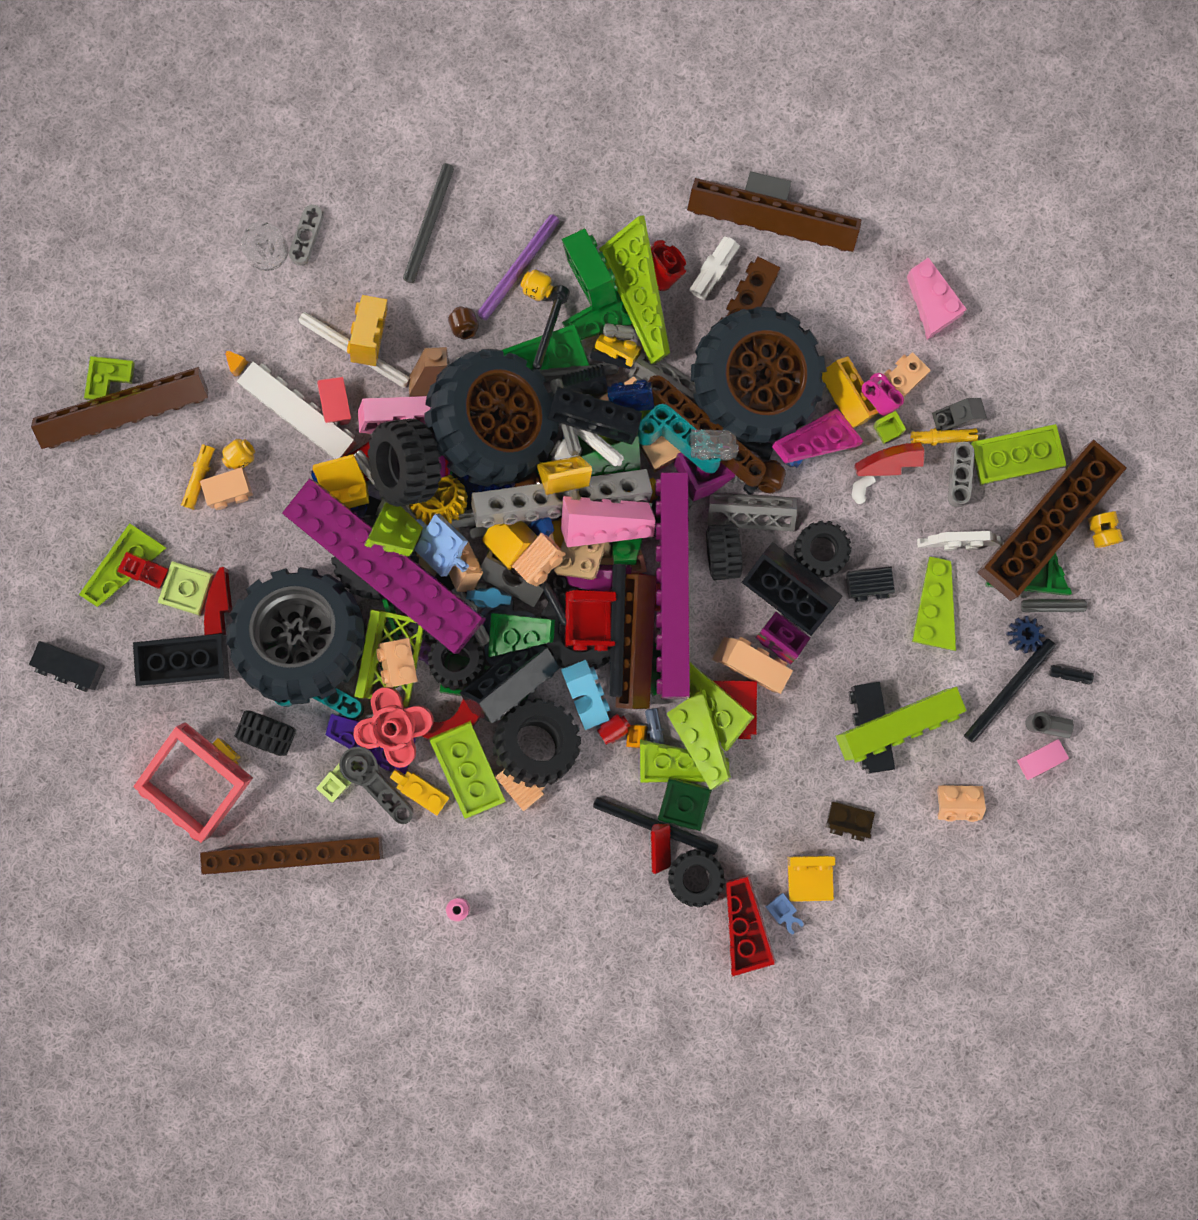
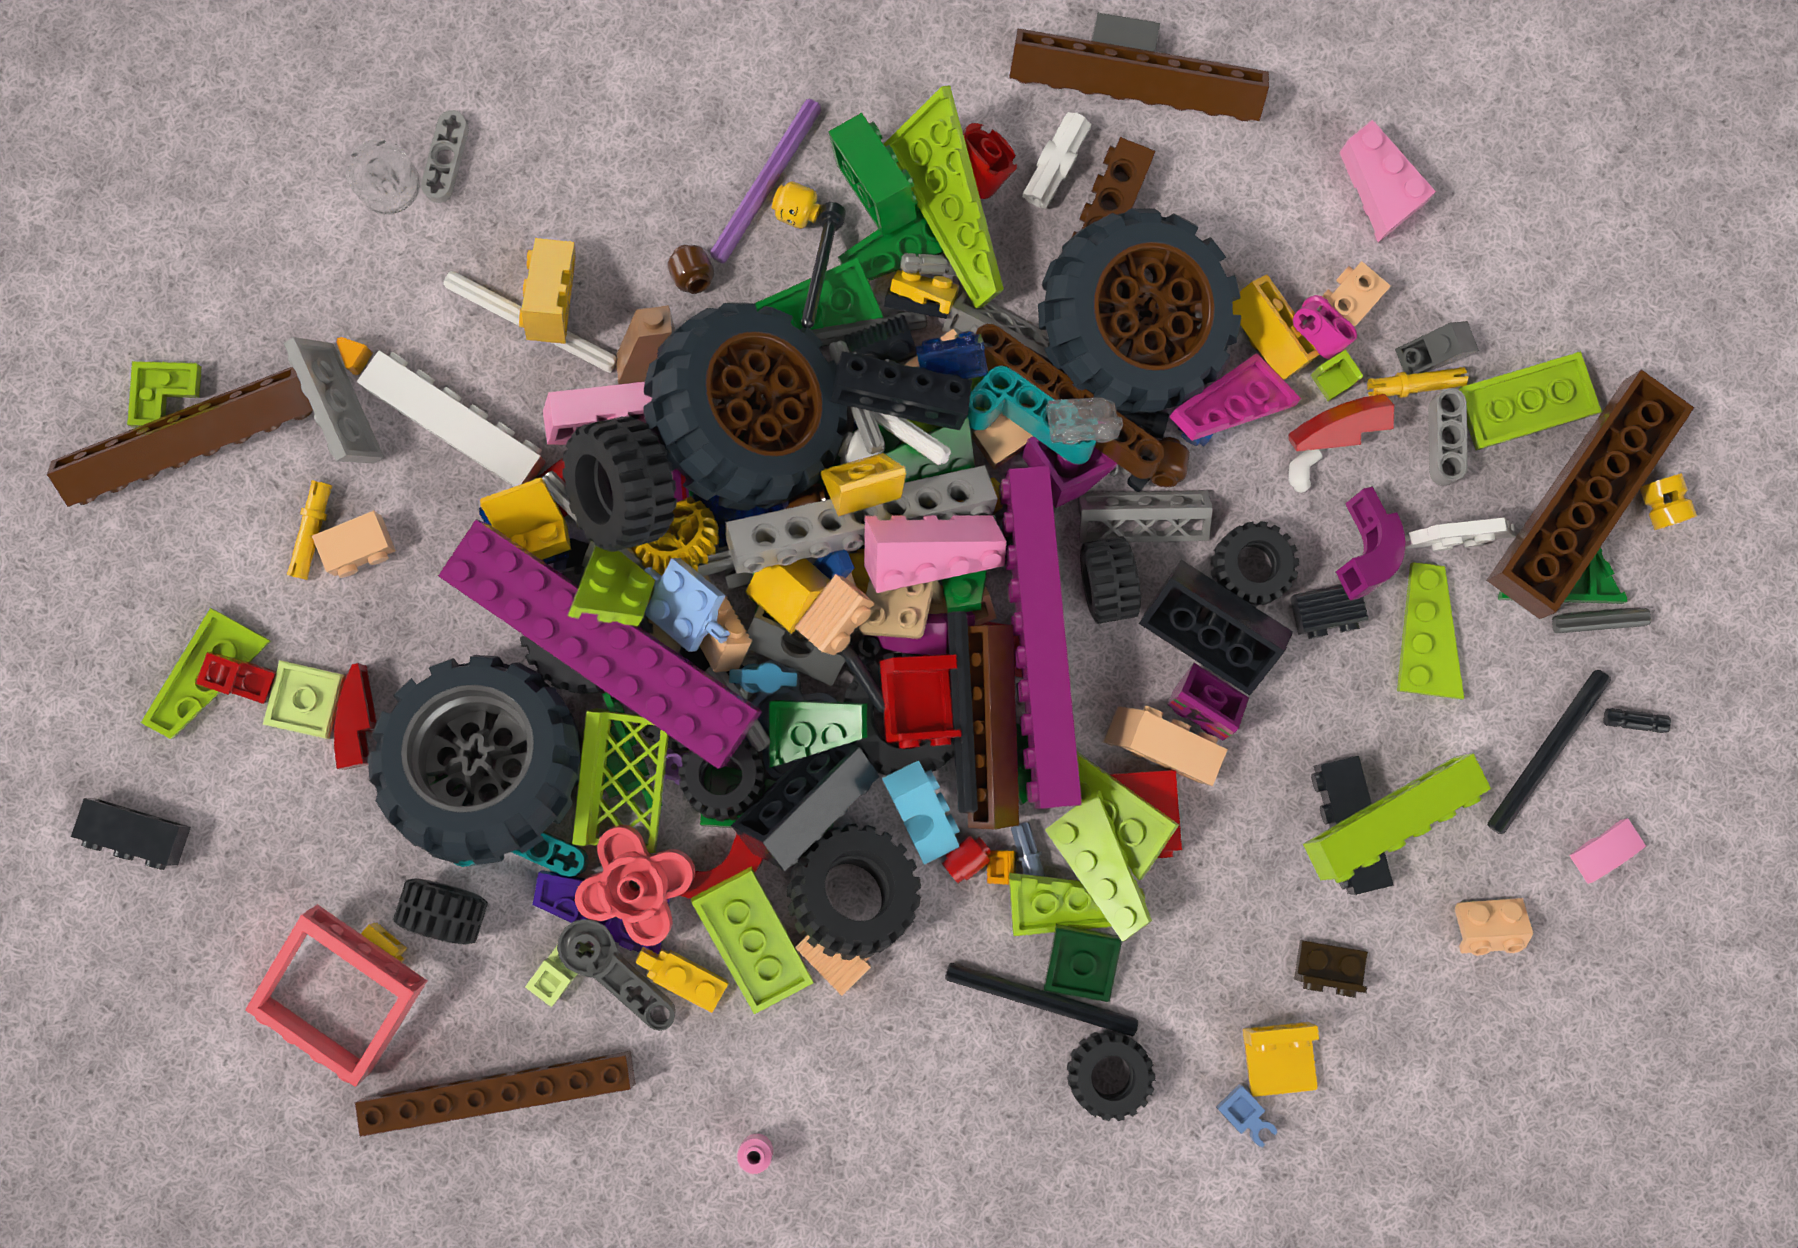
camera: 15 degrees left, 0 degrees up
(181, 661) = (303, 811): black brick -> none
(220, 393) = (333, 401): none -> light grey plate
(238, 454) = (367, 491): yellow head -> none
(334, 400) = (506, 399): coral panel -> none
(396, 663) = (632, 788): light nougat bracket -> none
(428, 223) = (626, 125): dark grey axle -> none
(660, 847) = (1053, 1033): red slope -> none
(748, 935) = (1195, 1153): red wedge -> none
(909, 543) = (1382, 543): none -> magenta arch
(1030, 628) = (1561, 678): dark blue gear -> none
(1050, 725) = (1614, 798): dark grey piece -> none

